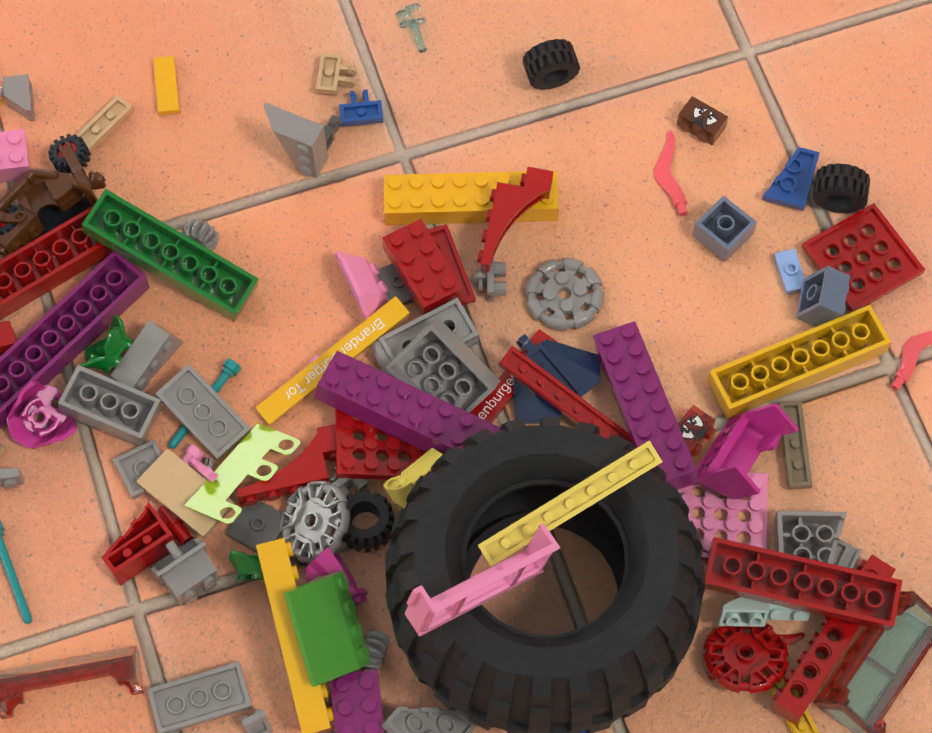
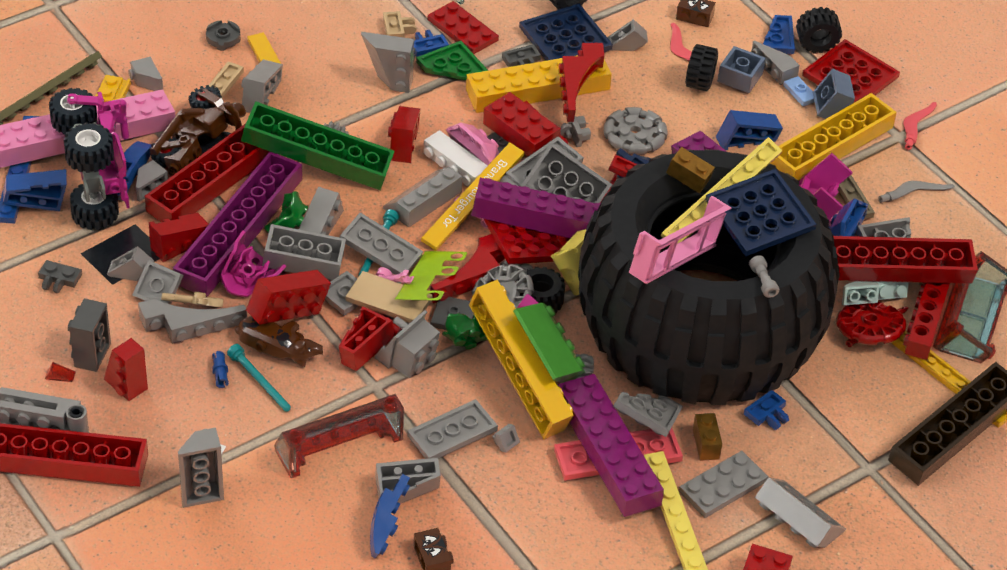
camera: 20 degrees left, 20 degrees down
(42, 526) = (278, 340): none -> reddish brown animal
(64, 476) = (288, 296): none -> red brick
(128, 60) = (230, 34): none -> dark grey plate
(142, 138) = (261, 83): none -> light grey wedge
(280, 343) = (426, 196): none -> light grey slope
(284, 243) = (403, 133): none -> red wedge
(332, 295) = (451, 154): none -> white brick
(380, 145) = (451, 61): none -> green plate
(411, 91) = (463, 27): none -> red plate
(465, 151) = (521, 56): none -> dark grey hinge
(532, 99) = (579, 21): none -> dark blue piece
(539, 464) = (690, 170): none -> pearl gold brick
(572, 631) = (769, 287): none -> light grey piece
(598, 589) = (773, 215): none -> dark blue piece
(603, 148) = (629, 37): none -> light grey slope
(672, 220) = (701, 67): none -> black tyre
(702, 321) = (747, 128): none -> blue wedge
(761, 509) = (848, 218): none -> blue wedge
(776, 226) = (777, 64): none -> light grey slope
(877, 448) = (910, 186): none -> light grey piece

